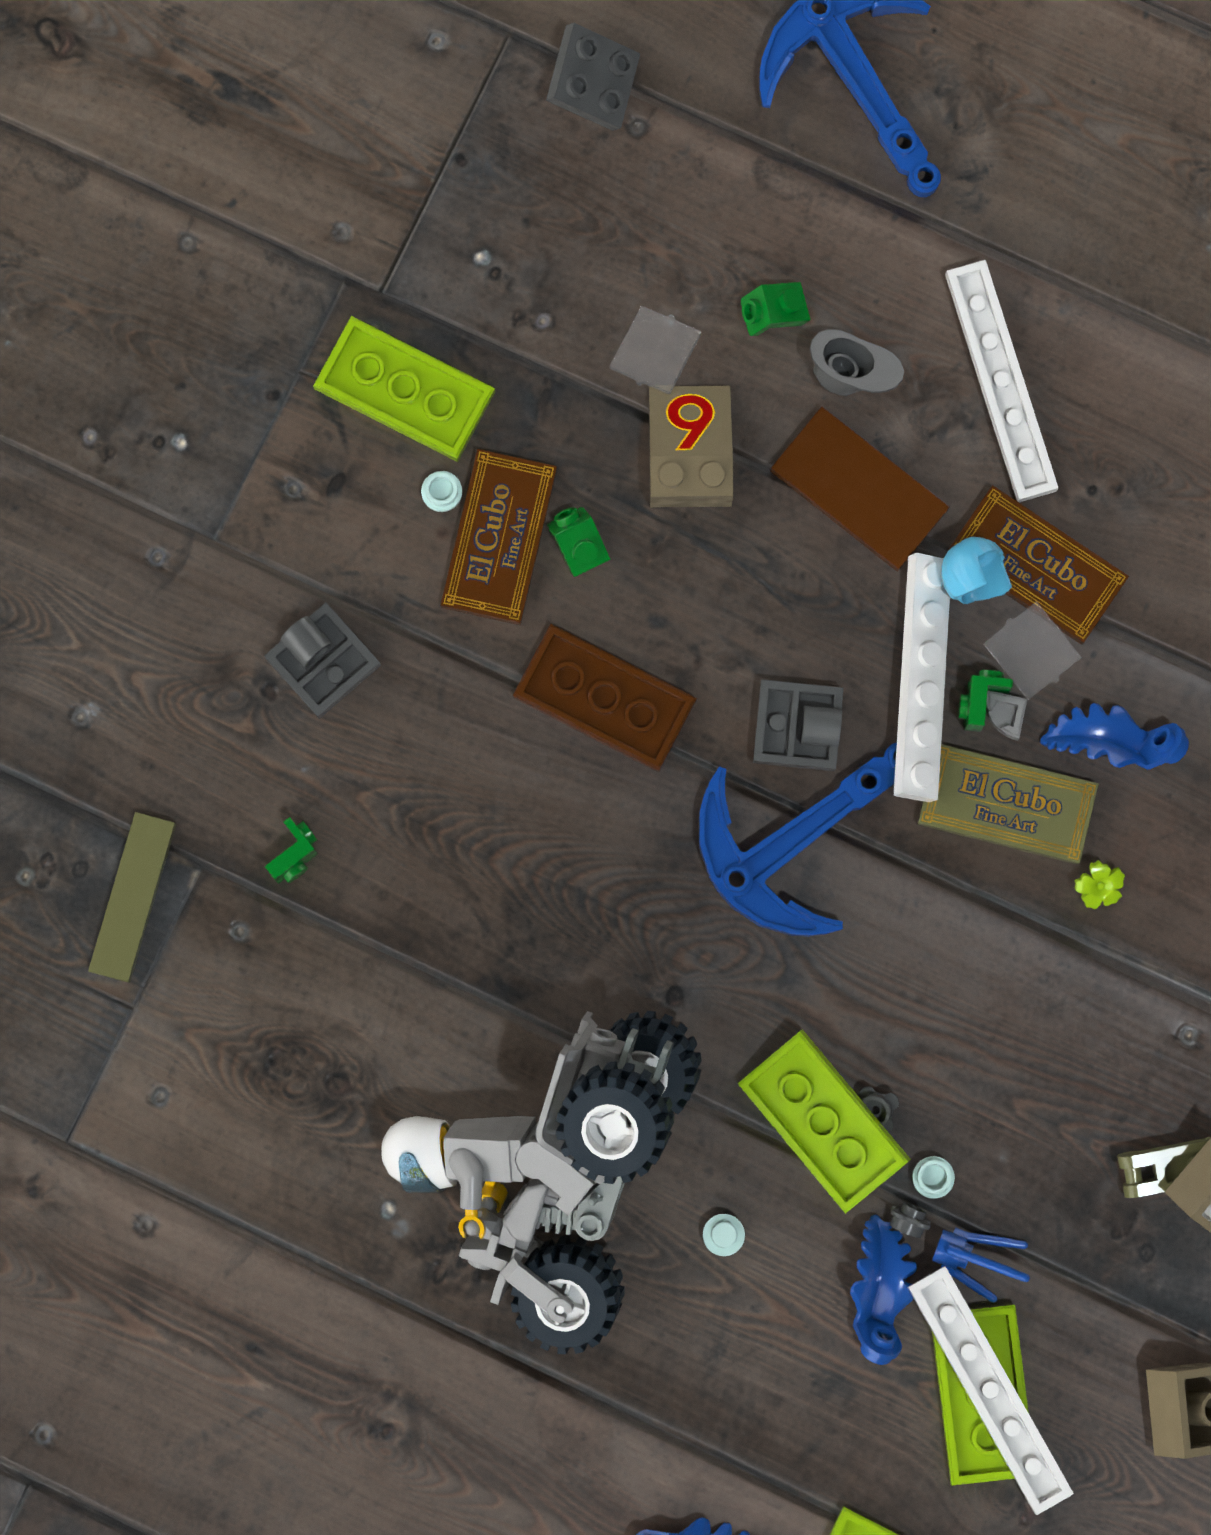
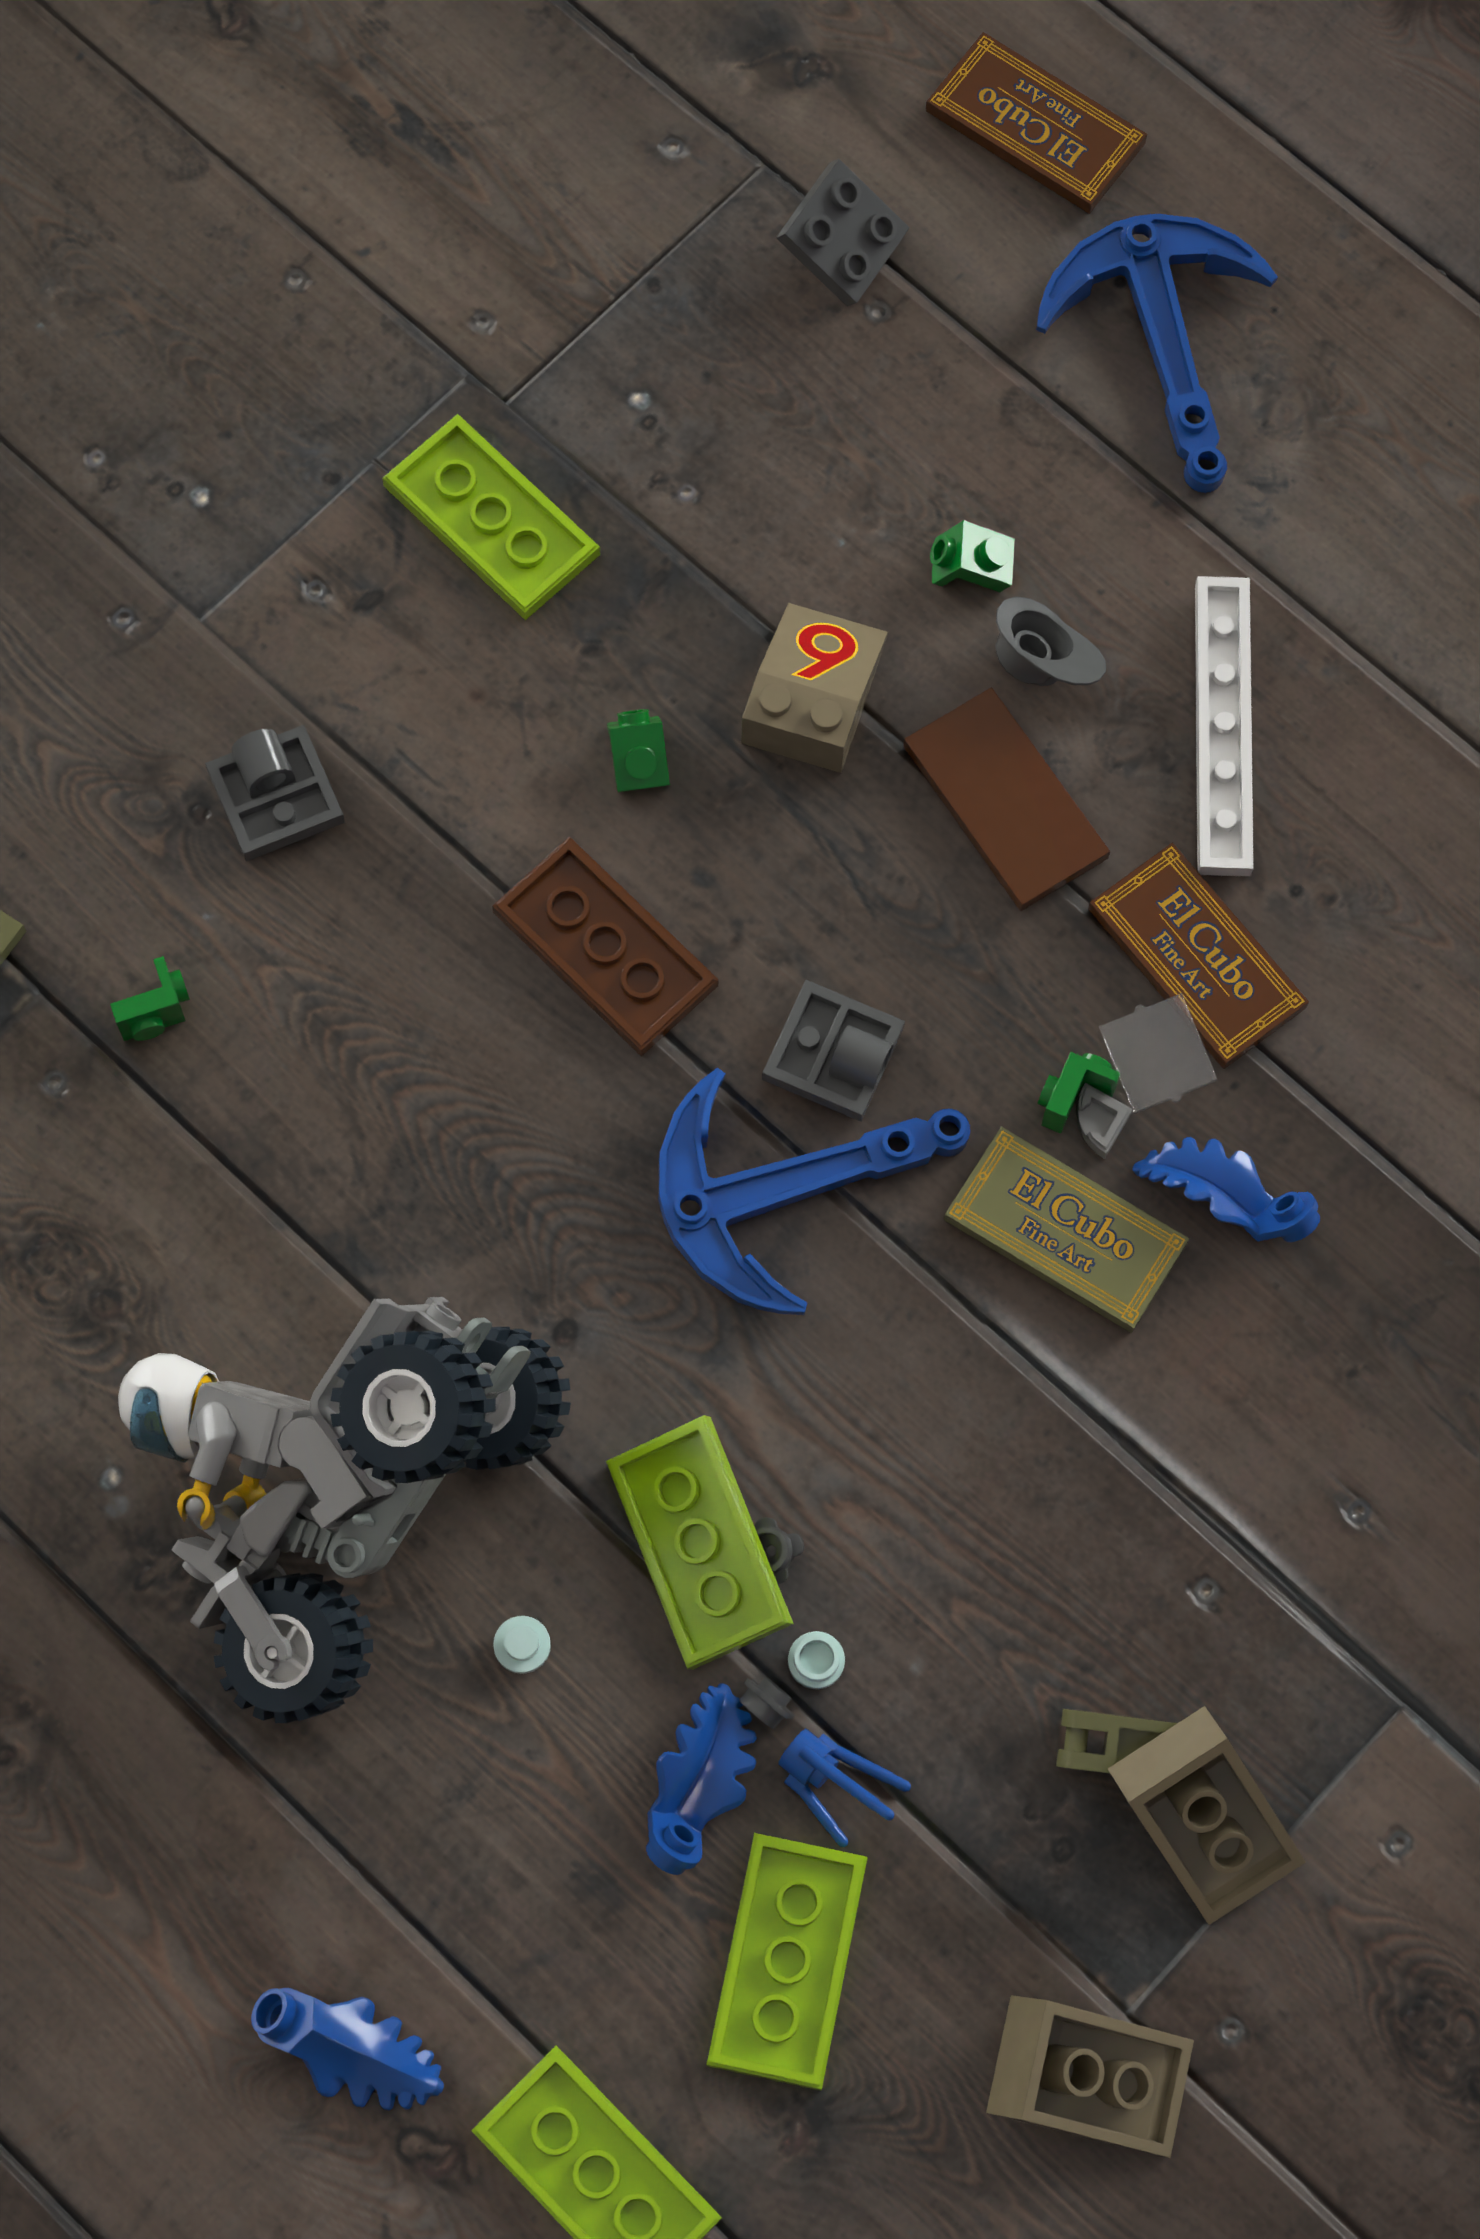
camera: 15 degrees right, 10 degrees down
(441, 491) = (492, 644): light aqua plate -> none
(498, 537) = (543, 719): reddish brown tile -> none
(655, 350) = (810, 563): clear piece -> none
(922, 680) = (1007, 1041): white plate -> none
(975, 571) = (1115, 929): medium azure hair -> none
(990, 1390) = (797, 1953): white plate -> none
(1100, 886) = (1151, 1364): lime plant -> none

